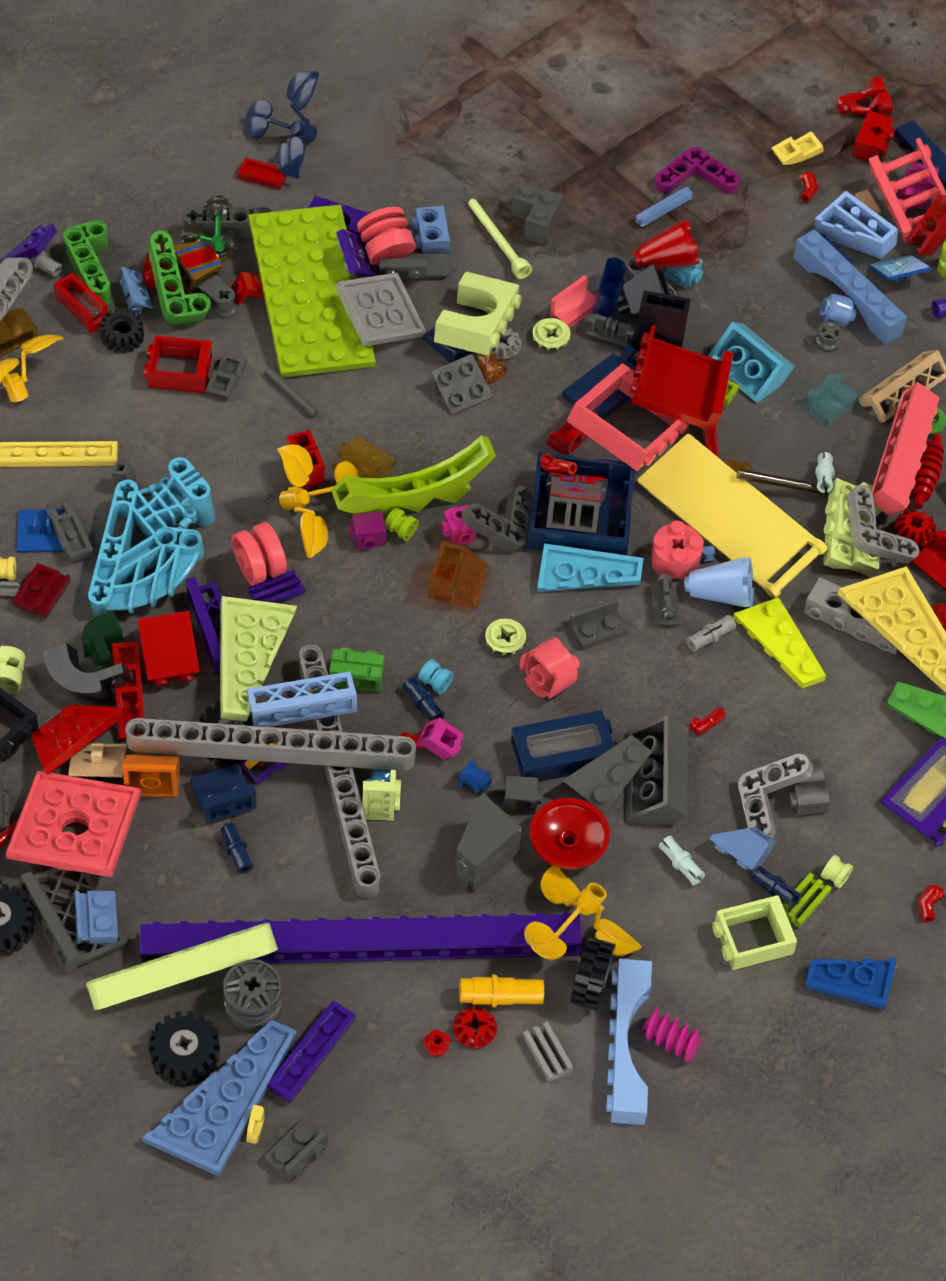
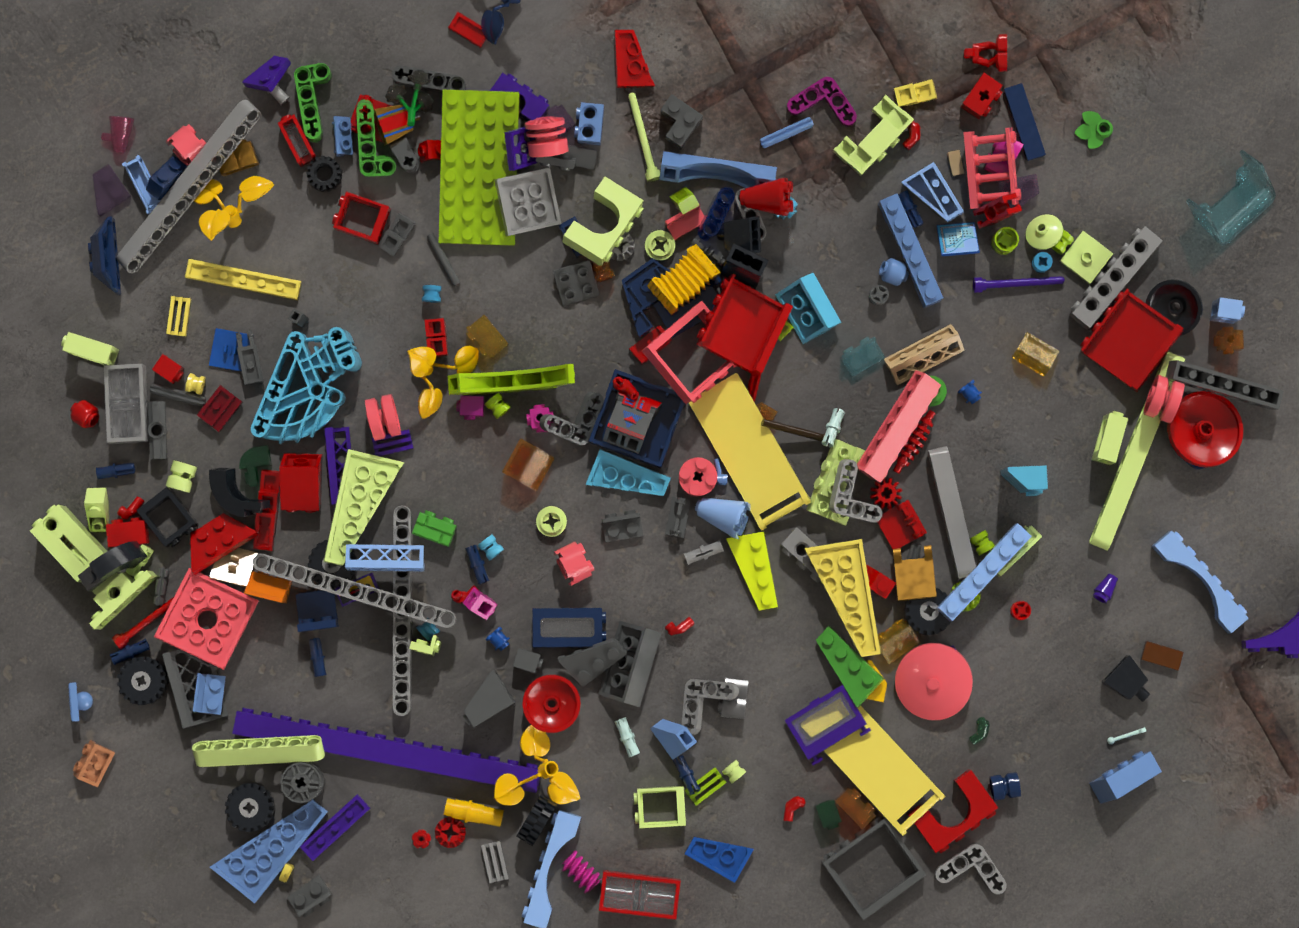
camera: 15 degrees right, 30 degrees up
(285, 423) = (431, 293): none -> dark azure wheel
(459, 171) = (629, 61): none -> red wing
(552, 372) = (640, 296): none -> dark blue wing
(568, 275) = (684, 200): none -> lime slope
(583, 249) = (683, 167): none -> medium blue arch
(593, 350) = (684, 280): none -> yellow piece
(762, 1043) = (639, 894): none -> clear brick
(772, 193) = (883, 136): none -> yellowish green bracket

